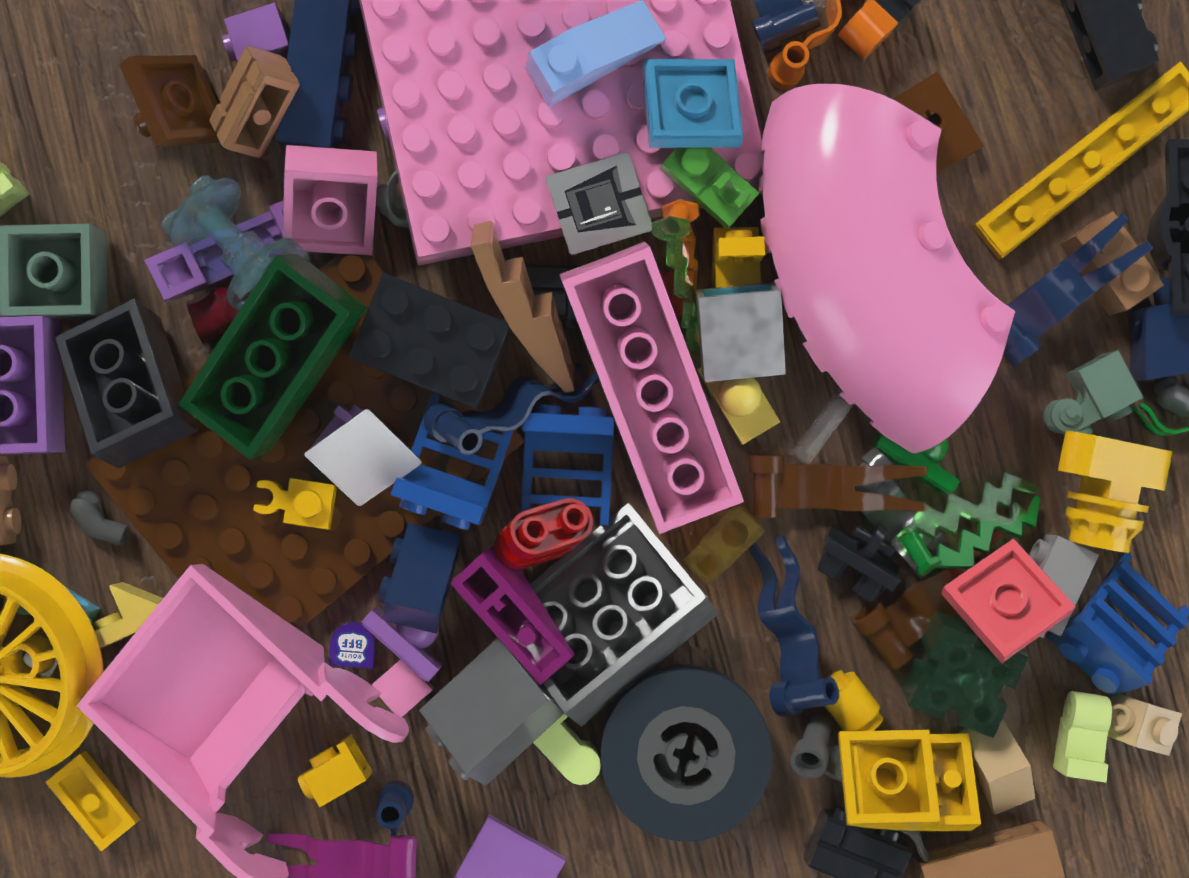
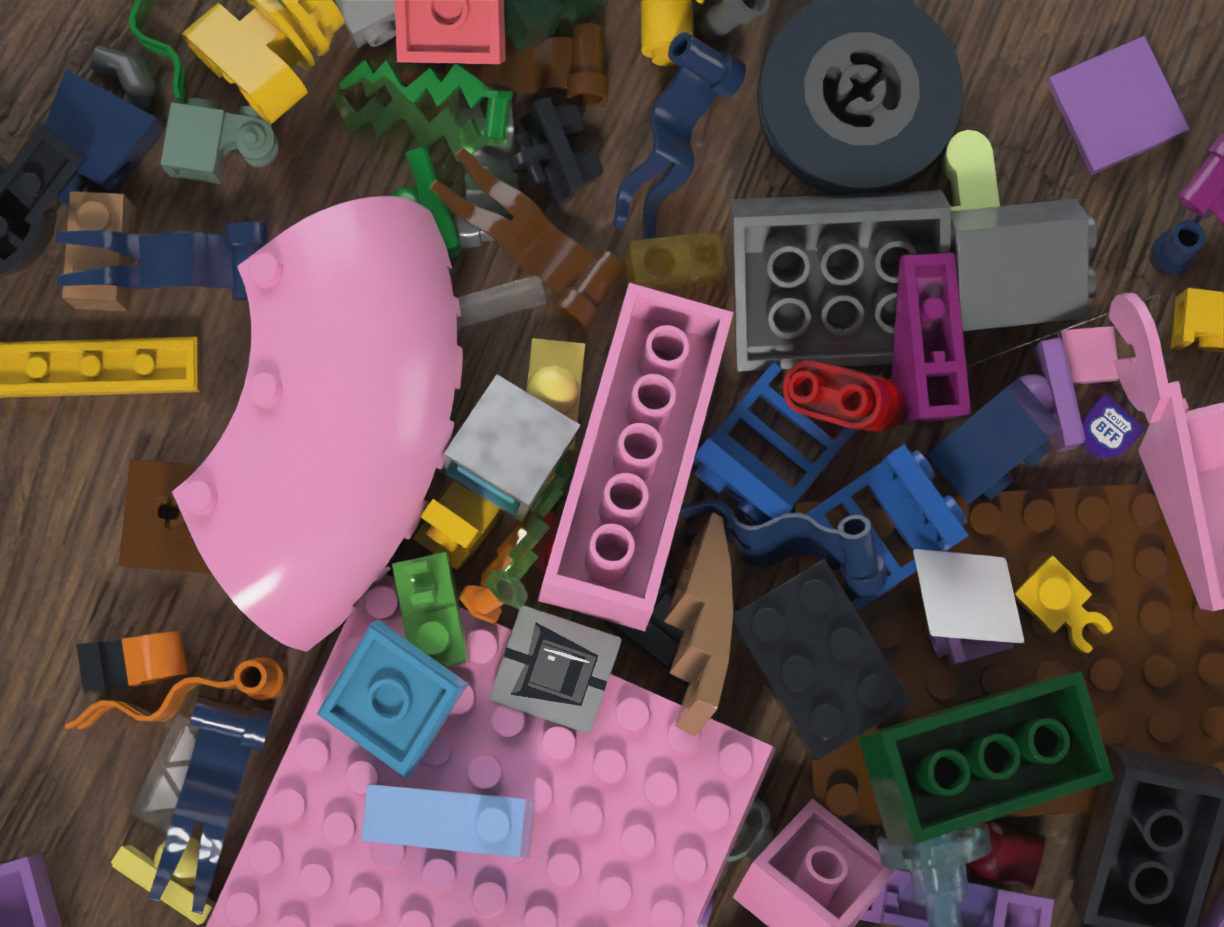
camera: 145 degrees left, 5 degrees down
(434, 683) = (1049, 334): none -> sticker

